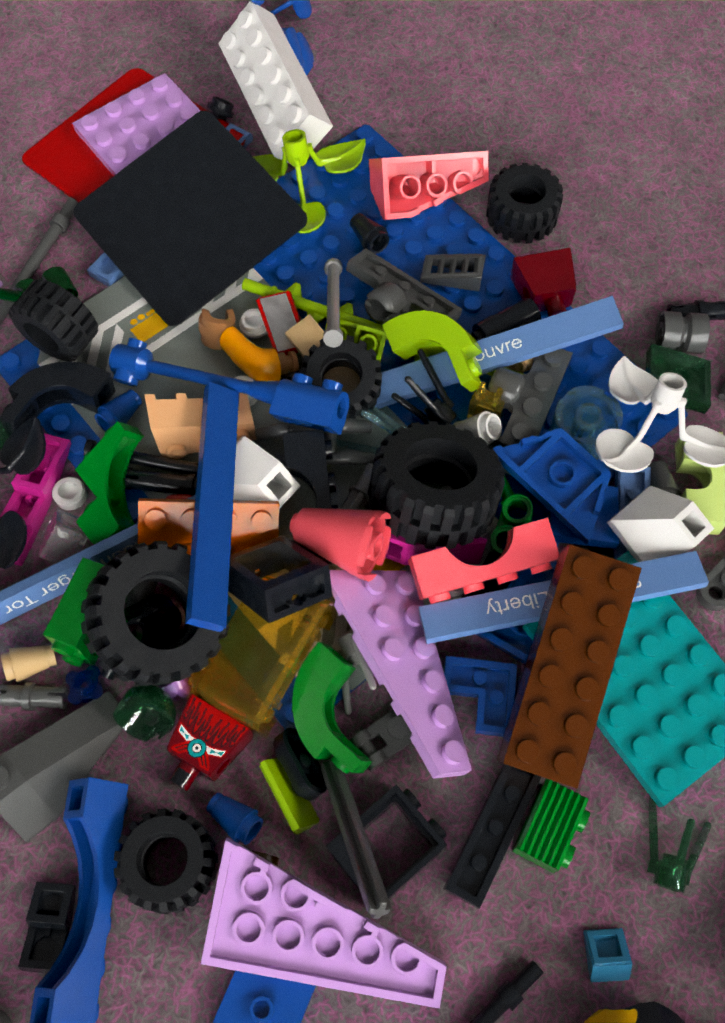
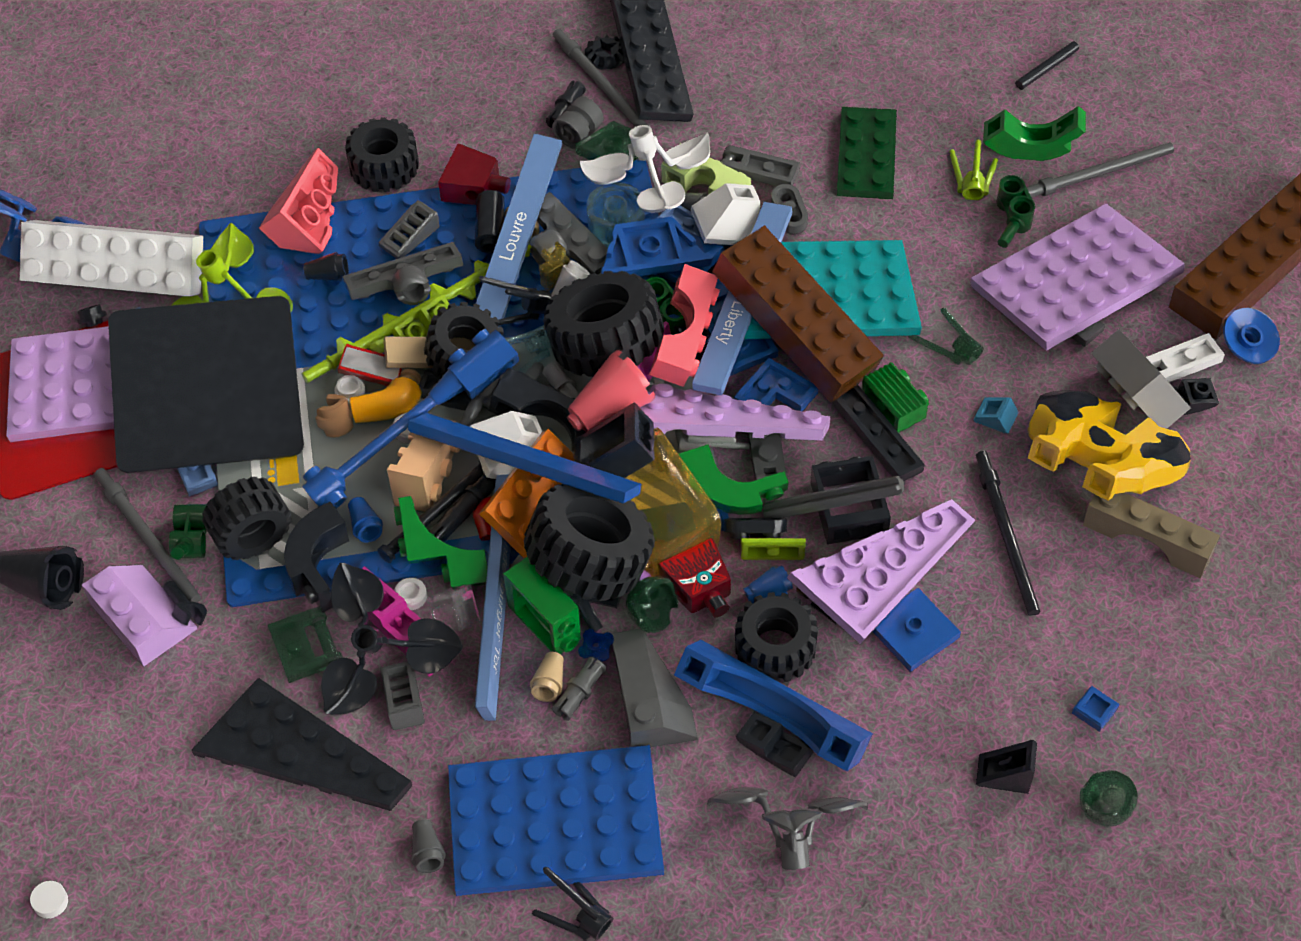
camera: 60 degrees left, 10 degrees down
(333, 335) = (437, 315): light grey bar -> none
(435, 330) = (476, 255): lime arch -> none

